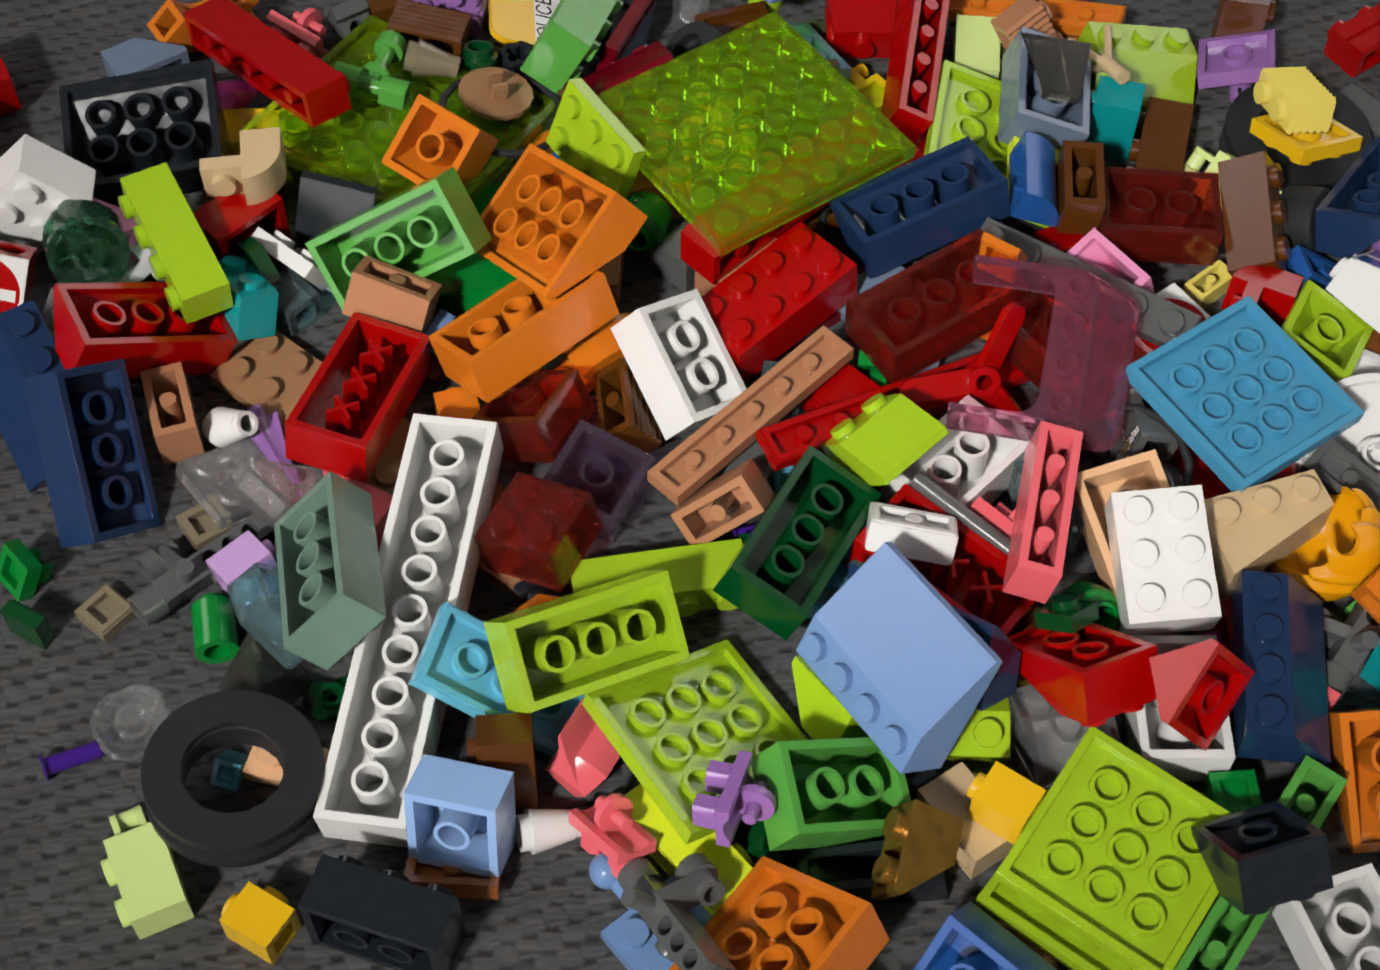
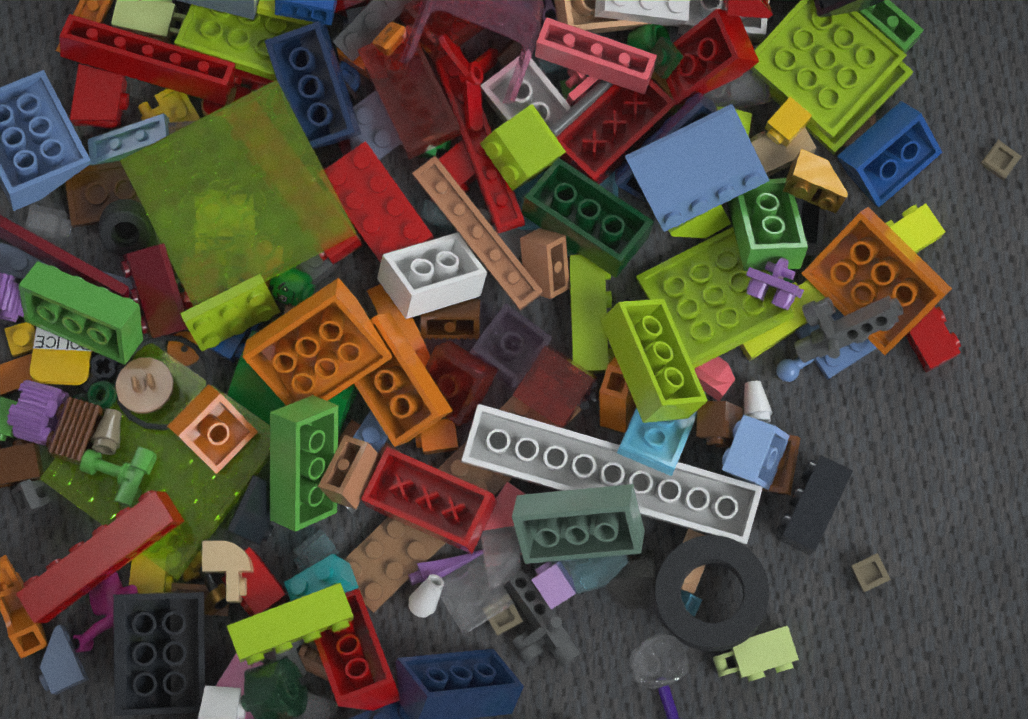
camera: 80 degrees left, 25 degrees up
(105, 612) = (560, 684): dark tan tile -> none
(172, 413) = (412, 636): nougat brick -> none
(214, 628) = (587, 609): green brick -> none
(259, 259) = (293, 569): dark green tile -> none
(260, 921) = (798, 583): yellow brick -> none
(296, 259) = (284, 547): white plate -> none
(304, 32) = (39, 549): coral hips -> none
(321, 693) = (654, 529): dark green plate -> none
(611, 830) = (771, 362): coral hips -> none
(914, 532) = (594, 143): white slope -> none

